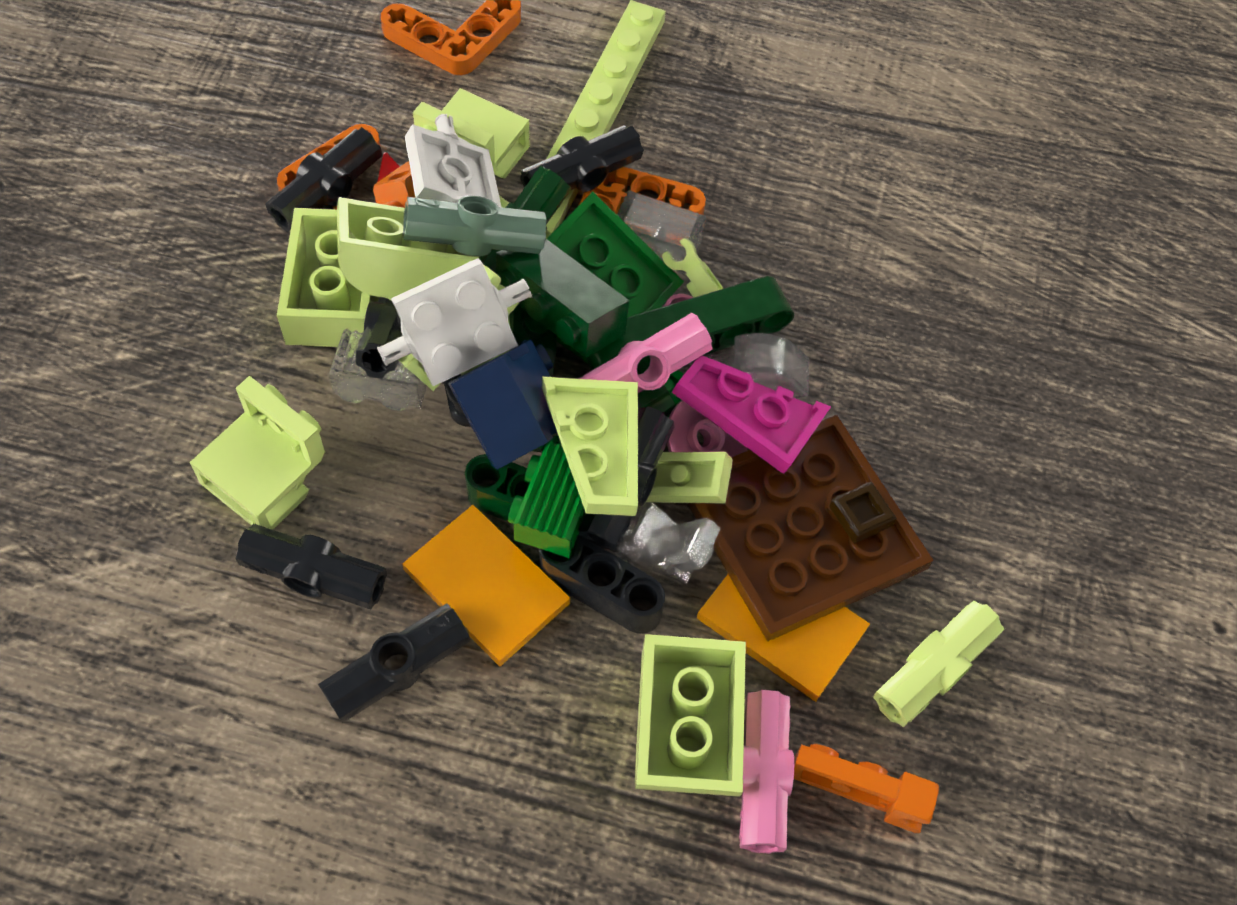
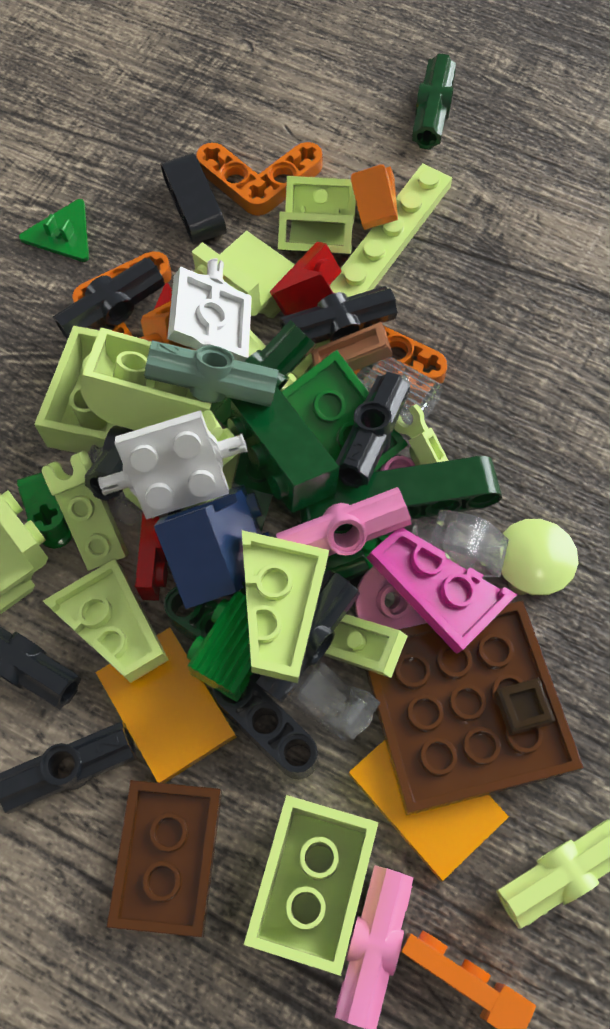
camera: 20 degrees right, 5 degrees up
(243, 119) = (62, 232): none -> green piece
(305, 393) = (44, 511): none -> green piece
(356, 401) = (85, 515): none -> yellowish green plate
(388, 64) = (193, 198): none -> black beam
(407, 506) = (110, 620): none -> yellowish green wing
(443, 426) = (151, 562): none -> red slope
(526, 733) = (165, 859): none -> reddish brown plate
(532, 64) = (319, 213): none -> yellowish green piece
(539, 131) = (307, 280): none -> red slope
(590, 37) = (375, 195): none -> orange slope
(615, 189) = (358, 348): none -> nougat tile
(649, 264) = (372, 429): none -> black piece
(842, 373) = (538, 558): none -> yellowish green dish

